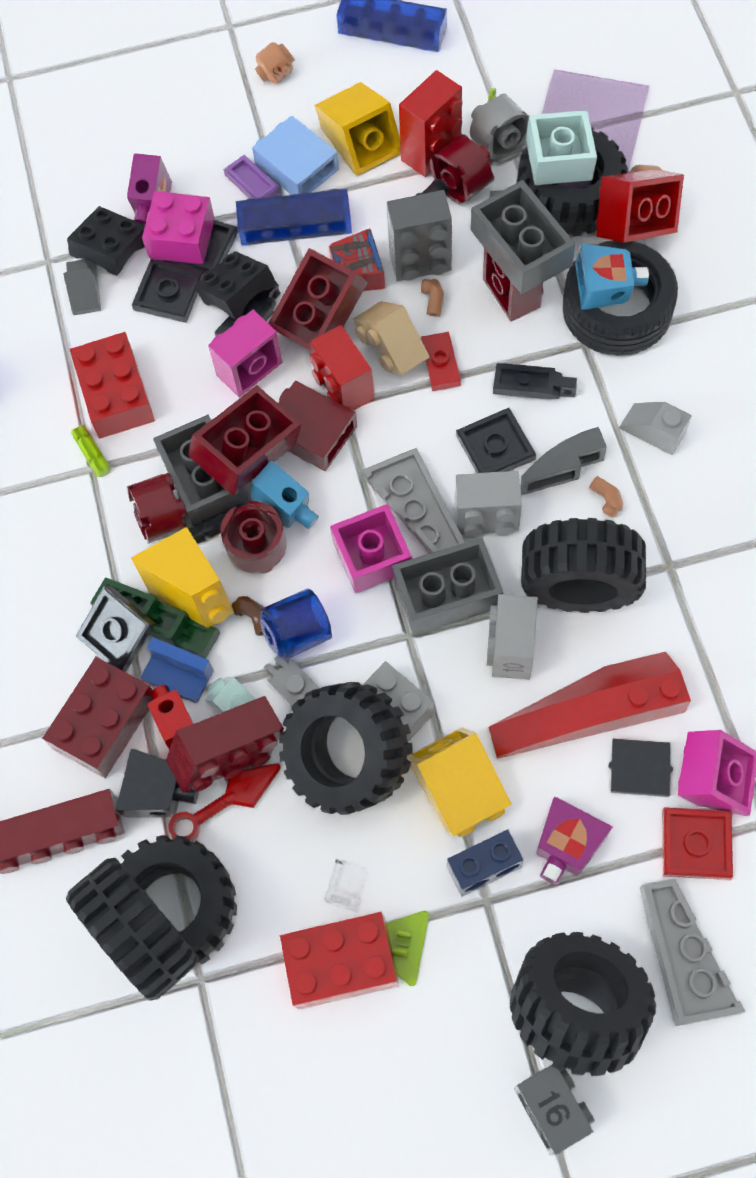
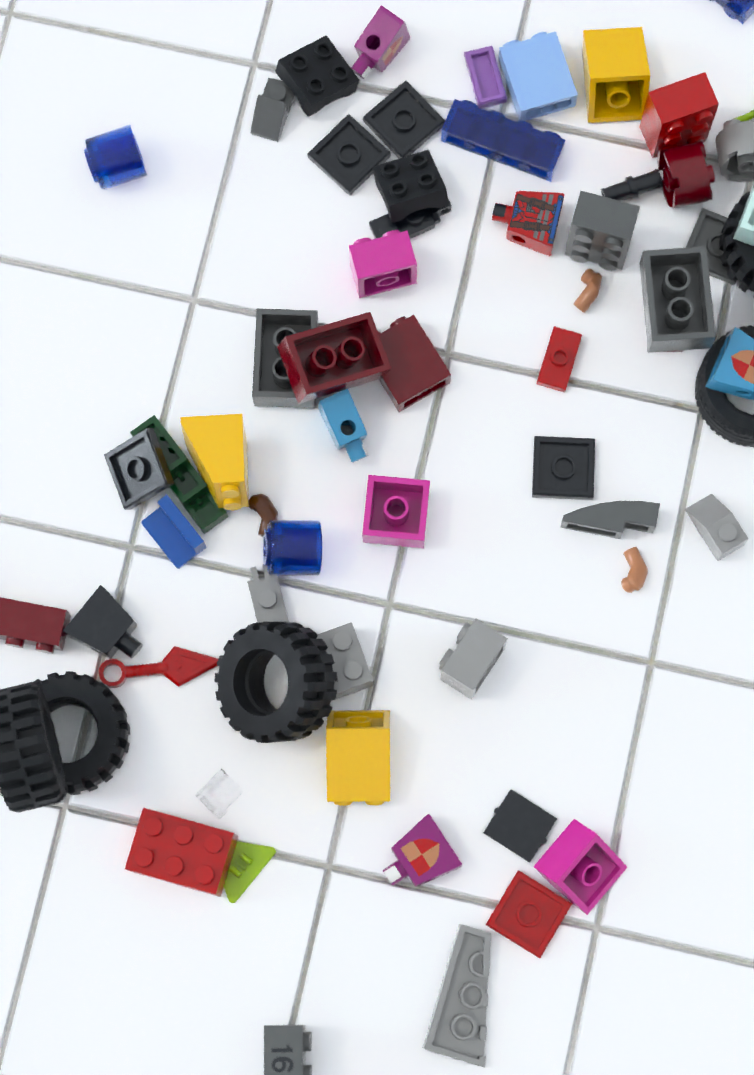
camera: 25 degrees right, 10 degrees up
(90, 451) = (200, 283): lime axle -> none
(99, 717) = (89, 541): dark red brick -> none
(111, 385) = (249, 229): red brick -> none
(156, 507) = (228, 374): dark red brick -> none
(168, 712) = (148, 582): red torso -> none
(178, 227) = (387, 99): dark pink brick -> none
(209, 527) = (276, 414): black axle -> none
(224, 745) = (178, 625): dark red brick -> none
(228, 694) = (207, 584): light aqua bracket -> none
(253, 537) = (305, 430): dark red brick -> none
(316, 299) = (472, 249): dark red brick -> none
(341, 369) = (461, 327): red brick -> none
(393, 334) = (524, 311): tan brick -> none
(415, 499) = (461, 483): light grey wing -> none
(447, 585) = (442, 581): dark grey brick -> none
(484, 863) = (341, 836): dark blue brick -> none
(488, 503) = (519, 525): light grey brick -> none
(532, 382) = (629, 425): black hinge -> none
(568, 1033) = (328, 1015): black tyre -> none
(584, 565) = (564, 630): black tyre -> none
(596, 704) = (514, 751): red wedge -> none

